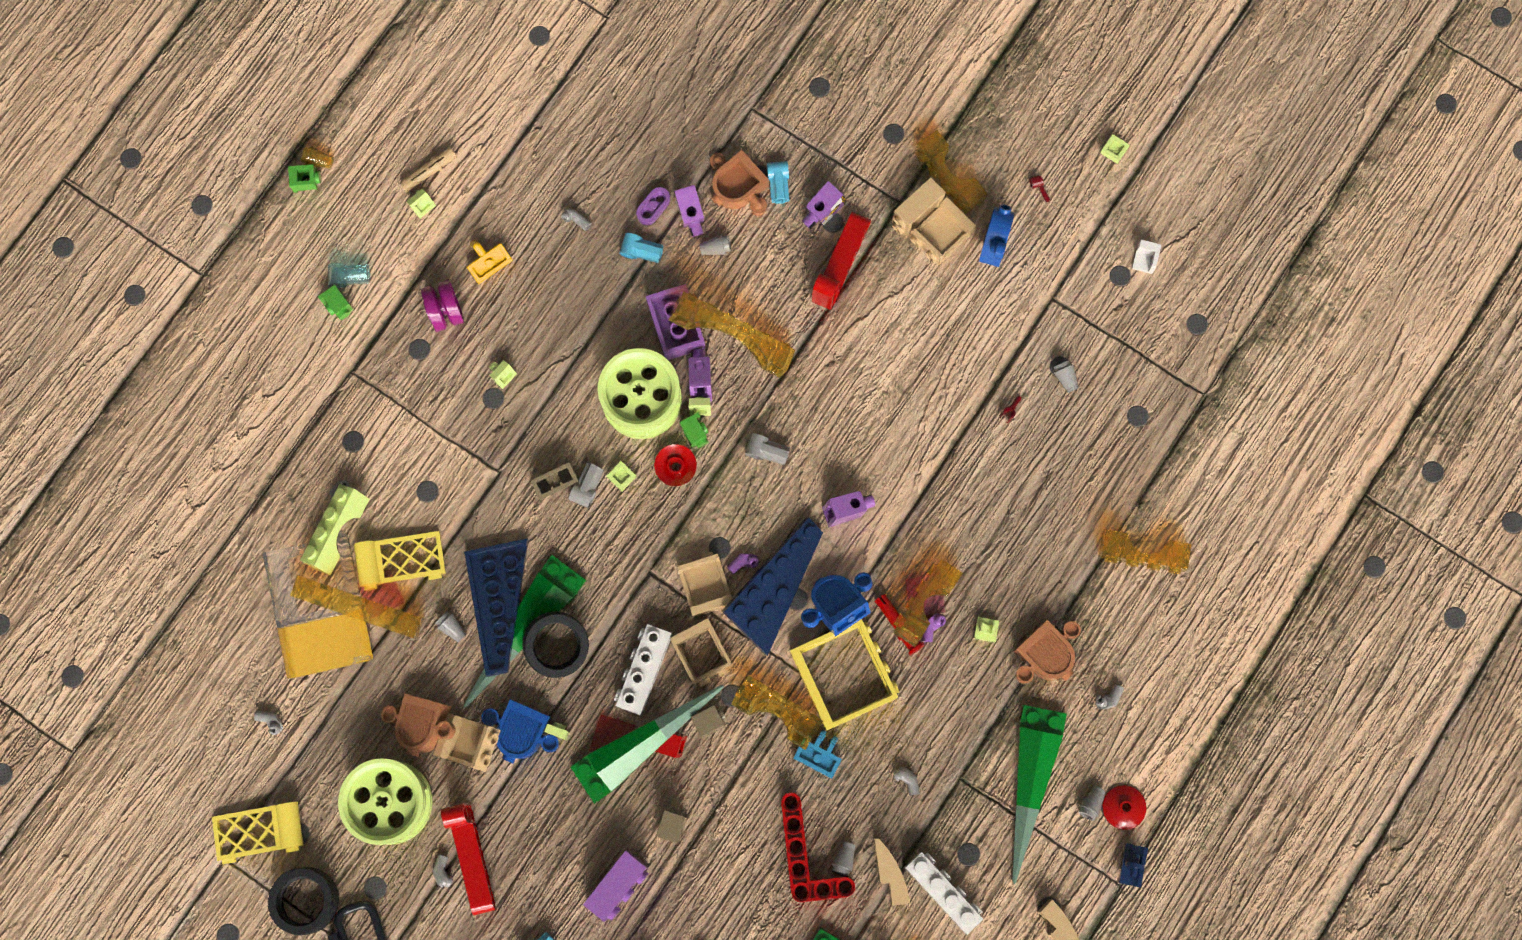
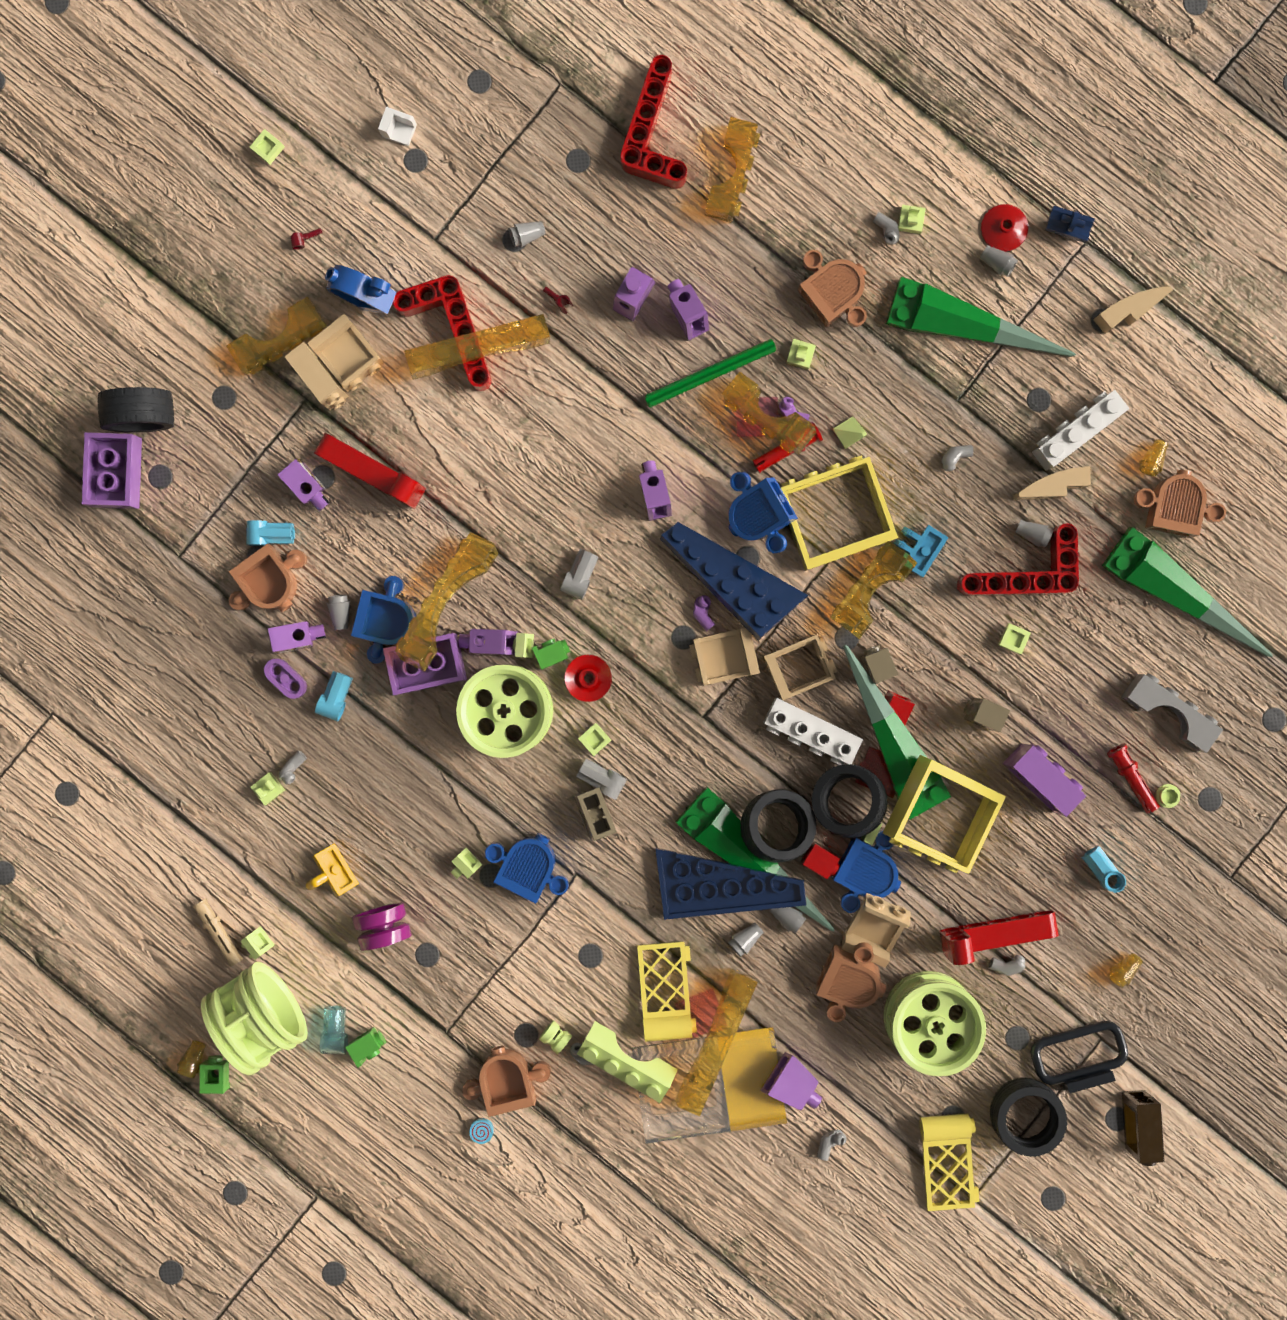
camera: 85 degrees left, 10 degrees up
(266, 409) = (481, 1130): none -> medium azure tile
(311, 426) = (506, 1082): none -> nougat piece
(322, 680) = (792, 1084): none -> medium lavender torso
(350, 469) = (559, 1041): none -> yellowish green wheel
(356, 204) = (253, 1018): none -> yellowish green wheel
(472, 664) = (789, 918): none -> light grey cone
(502, 427) = (527, 867): none -> blue piece
(526, 687) = (821, 861): none -> red brick
(556, 200) = (267, 788): none -> yellowish green tile
(559, 828) = (978, 828): none -> light yellow window
(589, 683) = (822, 792): none -> black tyre
(714, 282) = (382, 618): none -> blue piece
(744, 849) = (1014, 638): none -> yellowish green plate
(819, 46) = (111, 470): none -> medium lavender brick
(872, 60) = (135, 409): none -> black tyre
(919, 680) = (849, 432): none -> yellowish green slope
(960, 549) = (710, 373): none -> green axle
(968, 360) = (503, 338): none -> clear yellow arch
(978, 322) = (457, 323): none -> red beam
(1014, 522) = (688, 309): none -> medium lavender torso
(1023, 473) = (633, 293): none -> medium lavender torso
(1121, 719) = (911, 219): none -> yellowish green tile
(1174, 473) = (646, 127): none -> red beam

